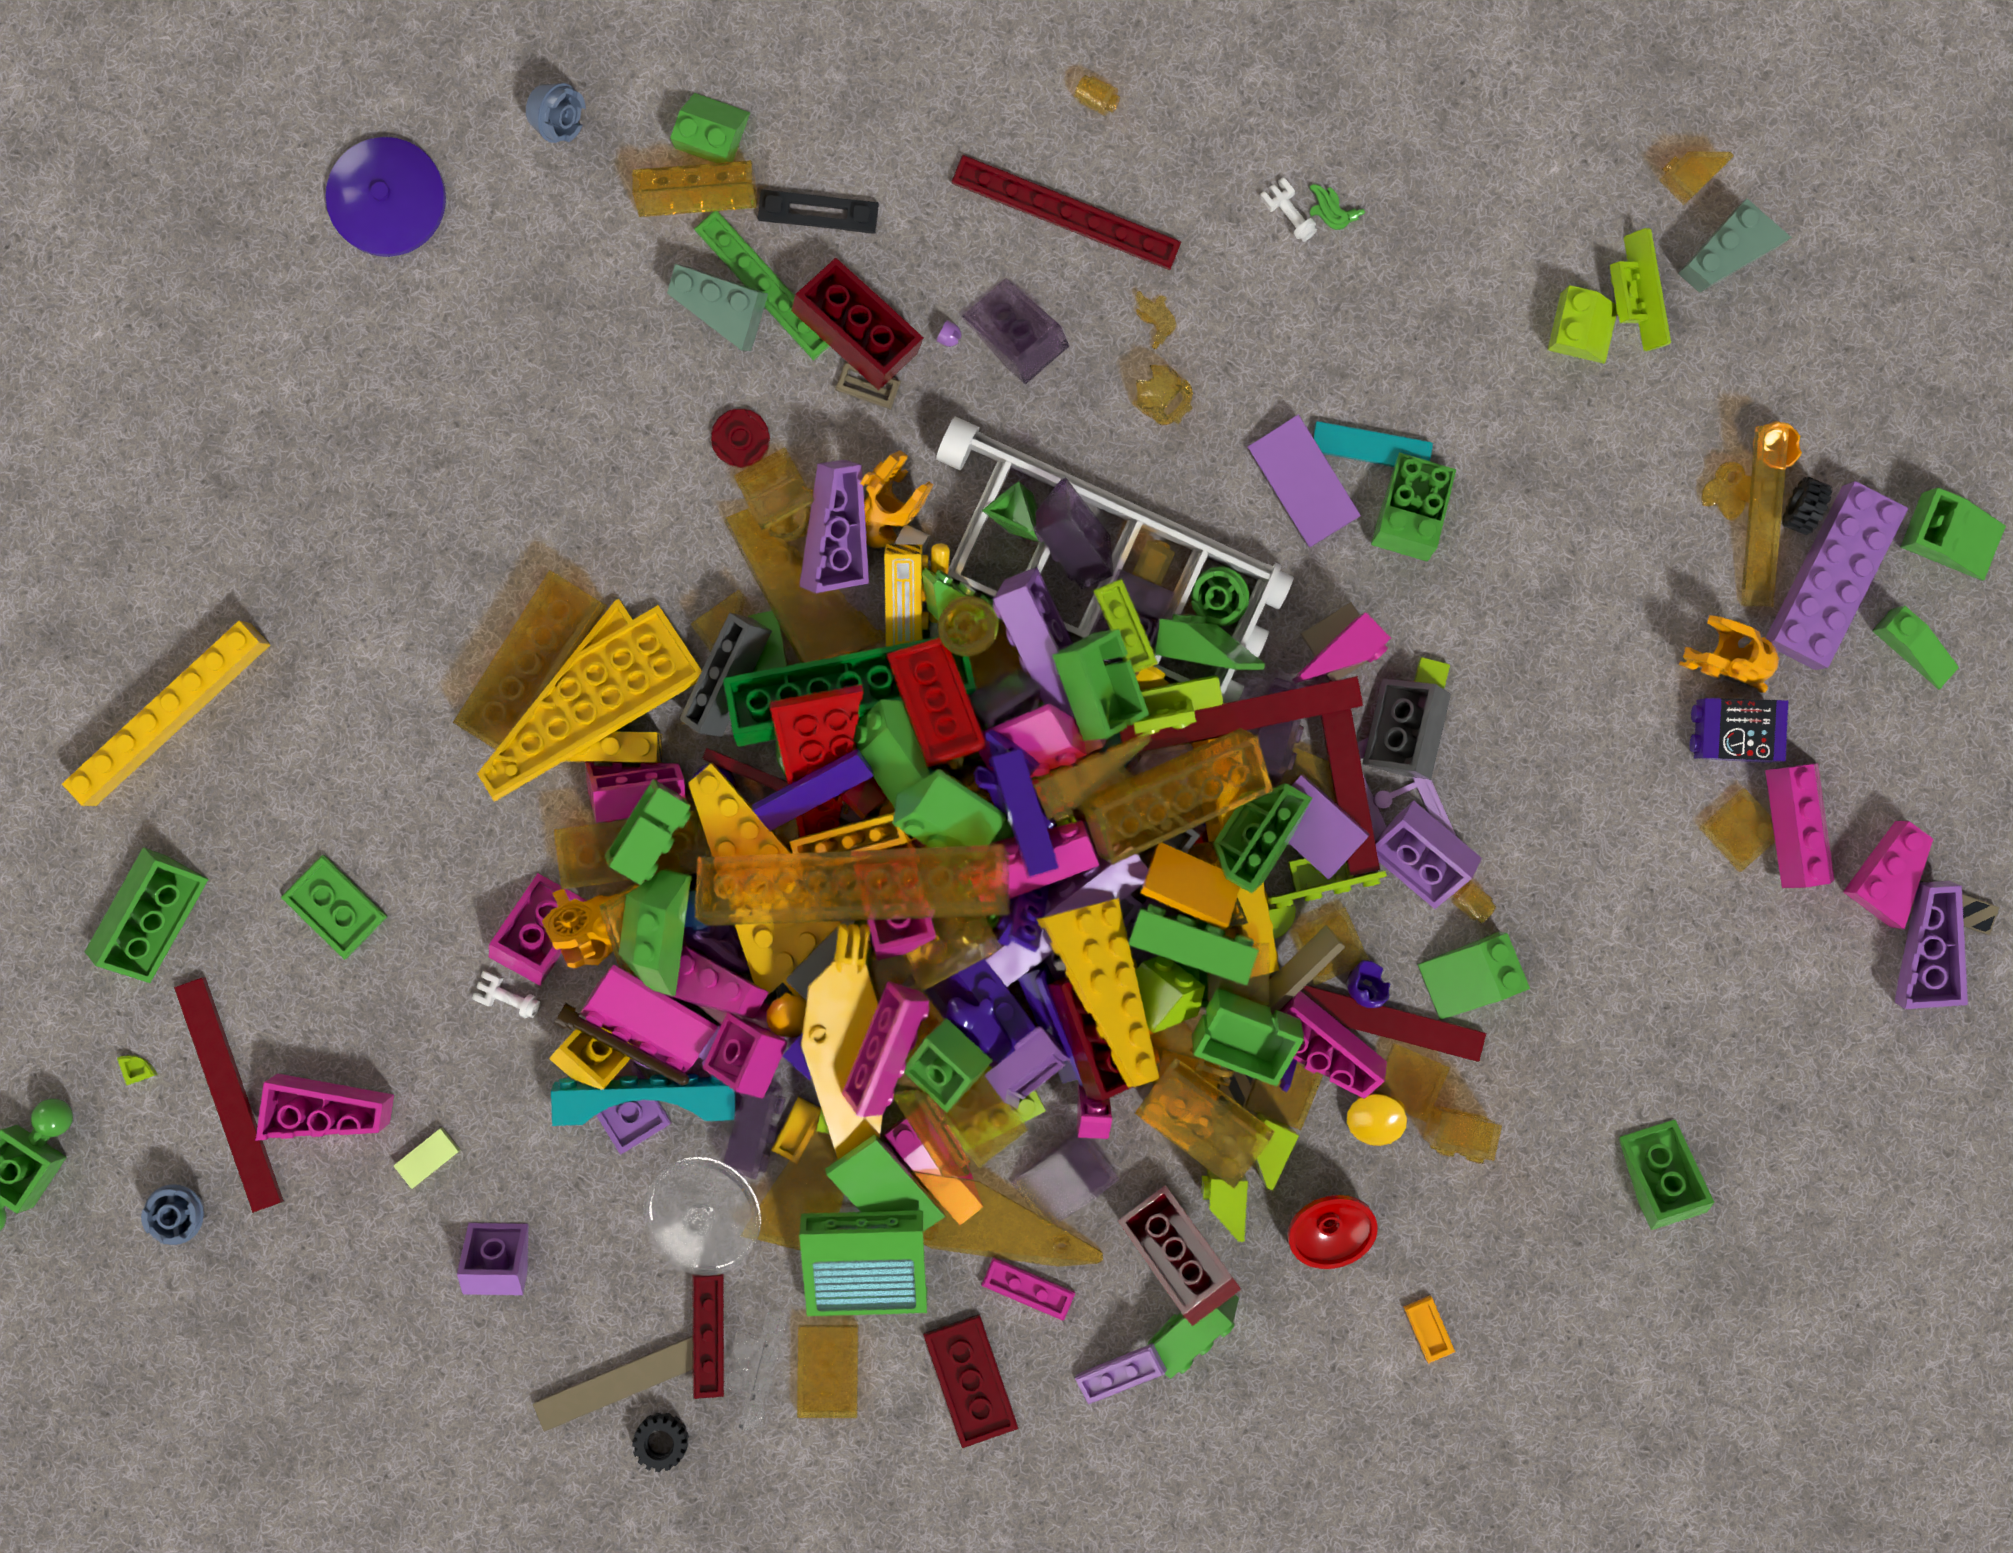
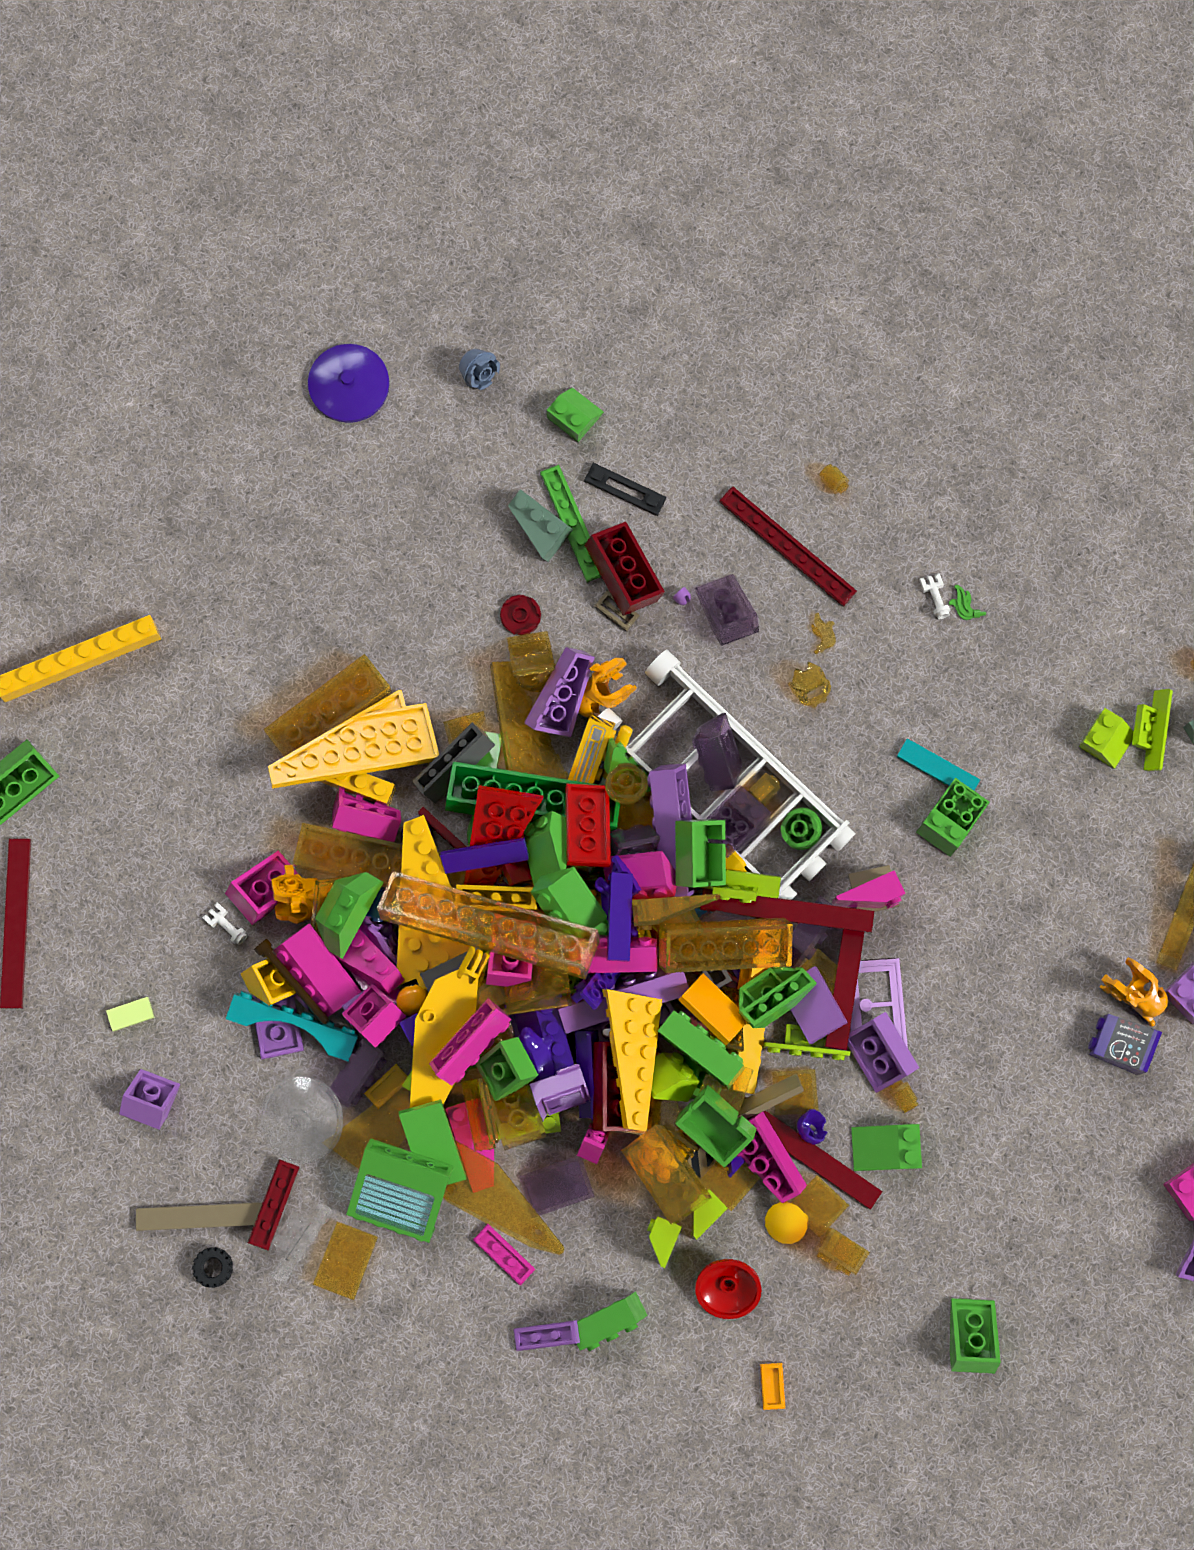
camera: 25 degrees right, 10 degrees down
(318, 1108) = (69, 951): dark pink wedge -> none
(334, 907) = (135, 824): bright green tile -> none
(648, 832) = (366, 844): bright green piece -> none
(694, 188) = (550, 446): clear yellow brick -> none
(971, 1381) = (441, 1305): dark red tile -> none
(1015, 511) = (684, 725): bright green slope -> none
(1121, 615) = (731, 812): lime tile -> none
(1179, 1255) = (617, 1262): brick -> none
(1204, 643) = (773, 848): bright green slope -> none
(1282, 919) = (768, 1062): lime tile -> none
(1304, 481) = (885, 774): medium lavender tile -> none
(1407, 728) = (898, 962): dark grey slope -> none
(1432, 672) = (927, 933): lime tile -> none
(1728, 495) = (1170, 886): clear yellow plate -> none
(1740, 830) = (1106, 1115): clear yellow plate -> none
(1800, 826) = (1147, 1125): dark pink slope -> none

